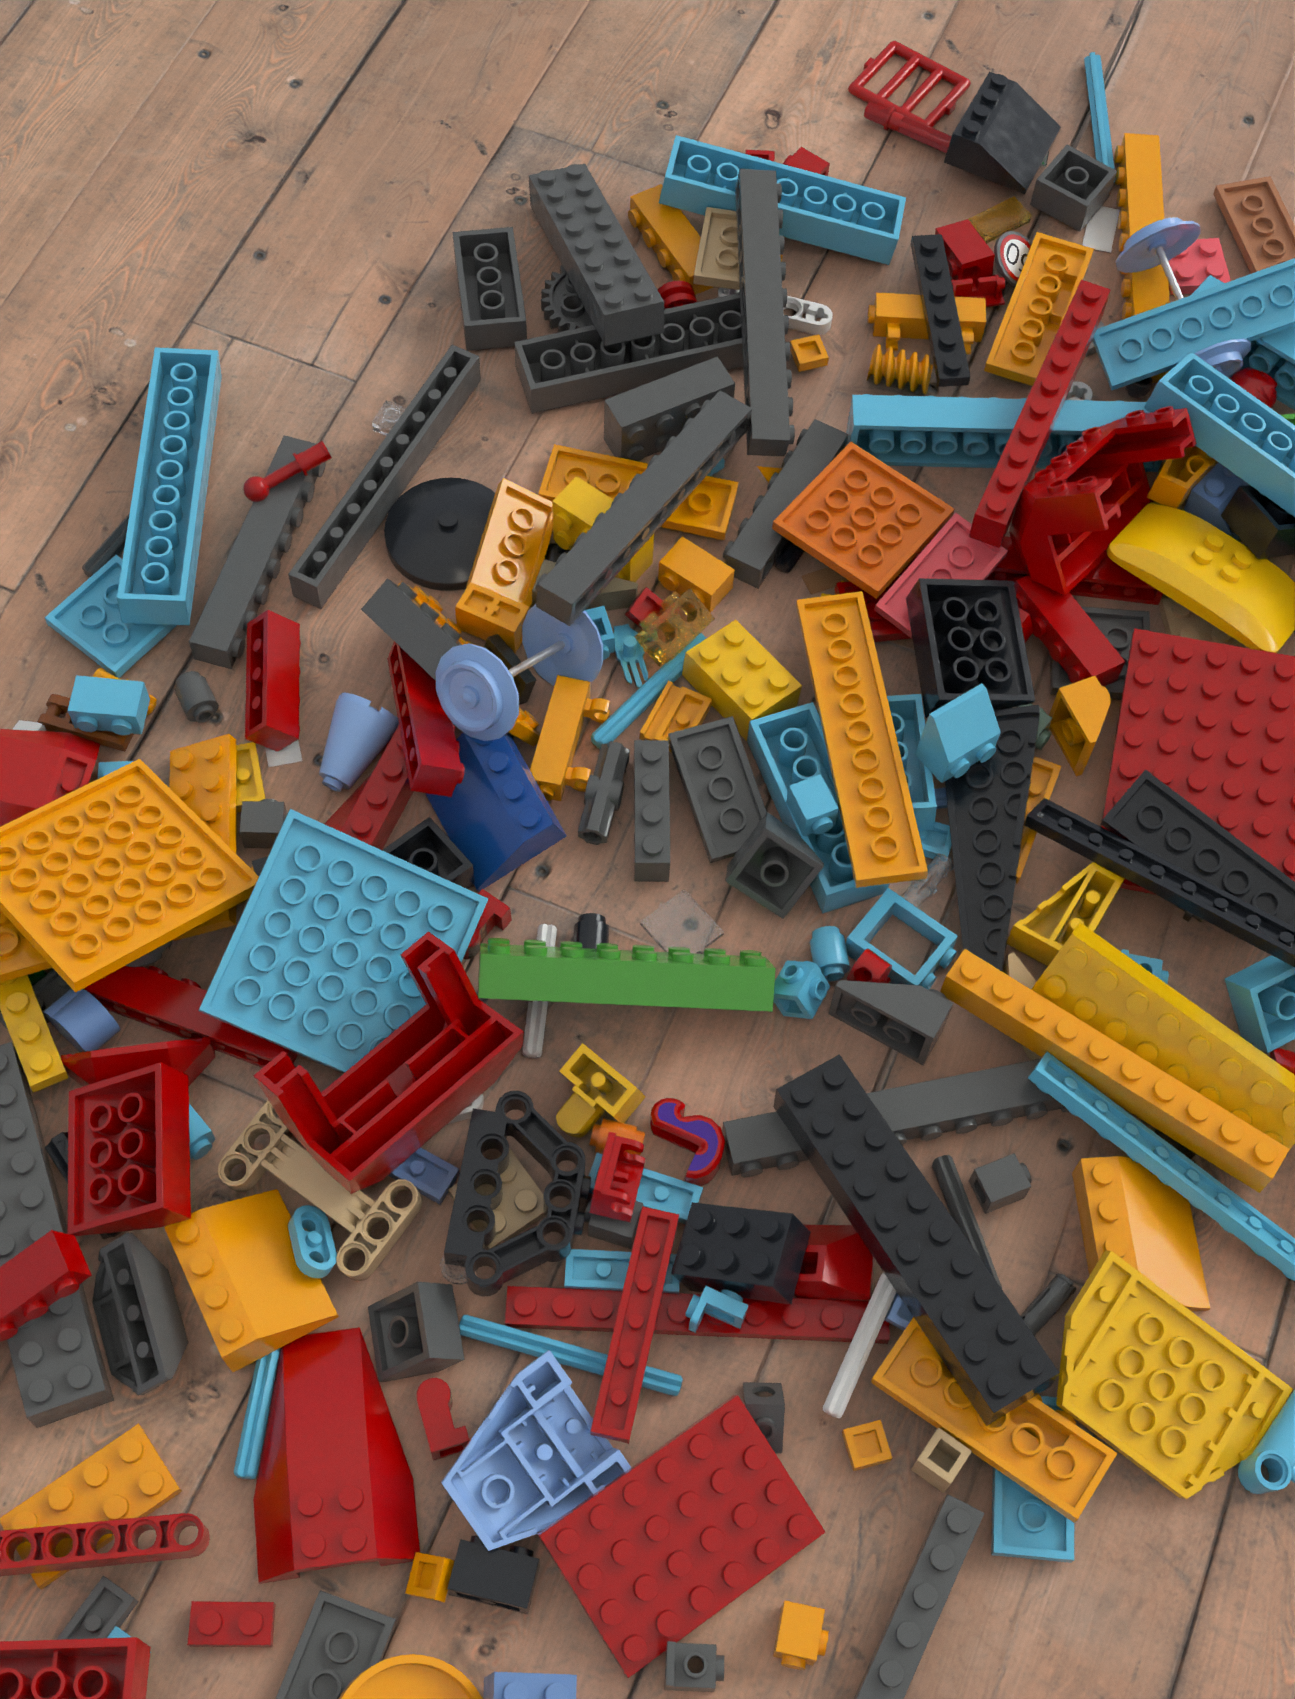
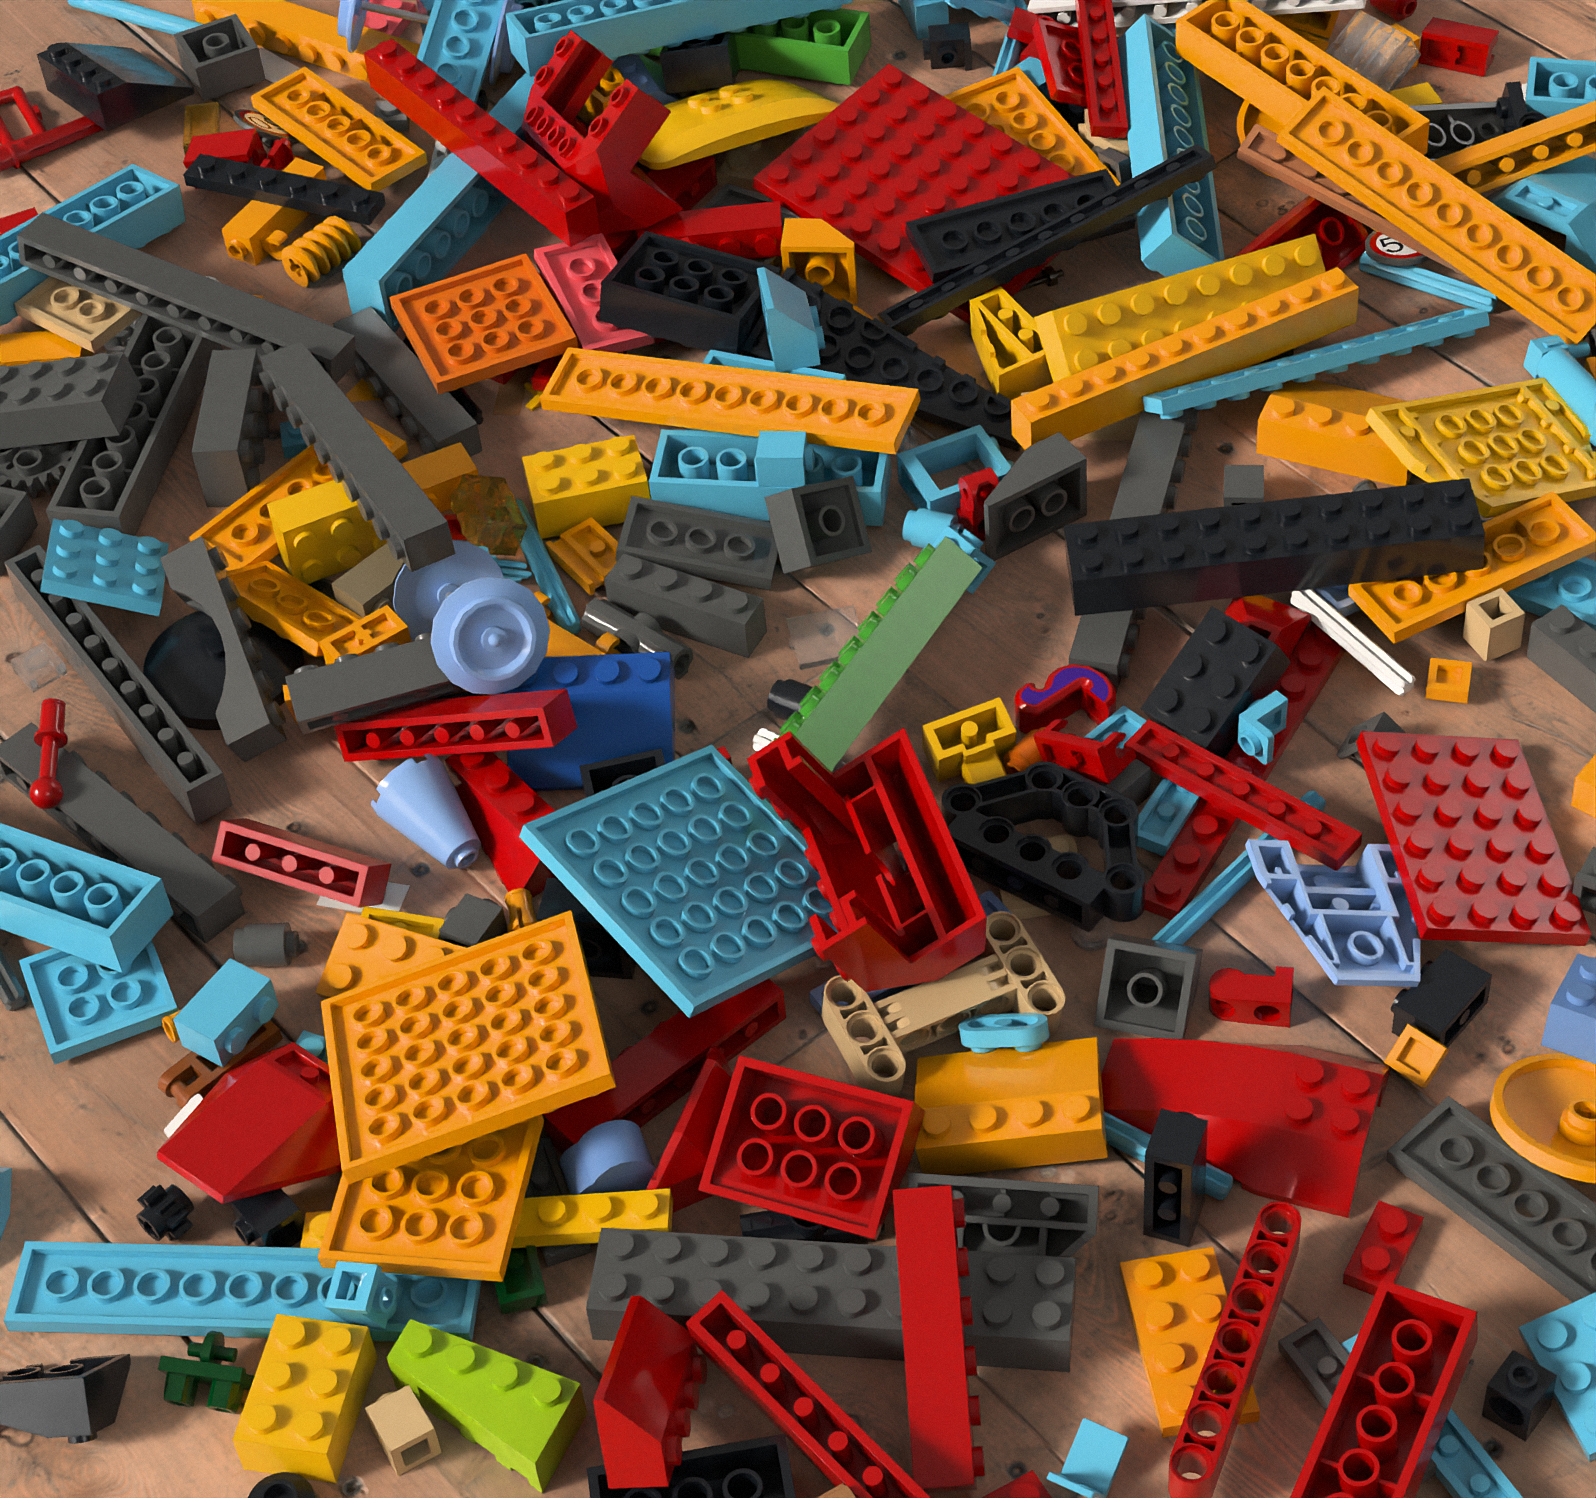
camera: 55 degrees left, 15 degrees down
(199, 1433) = (1175, 1177): none -> black brick
(483, 478) = (246, 709): none -> dark grey arch
(484, 408) = (104, 567): none -> medium azure plate

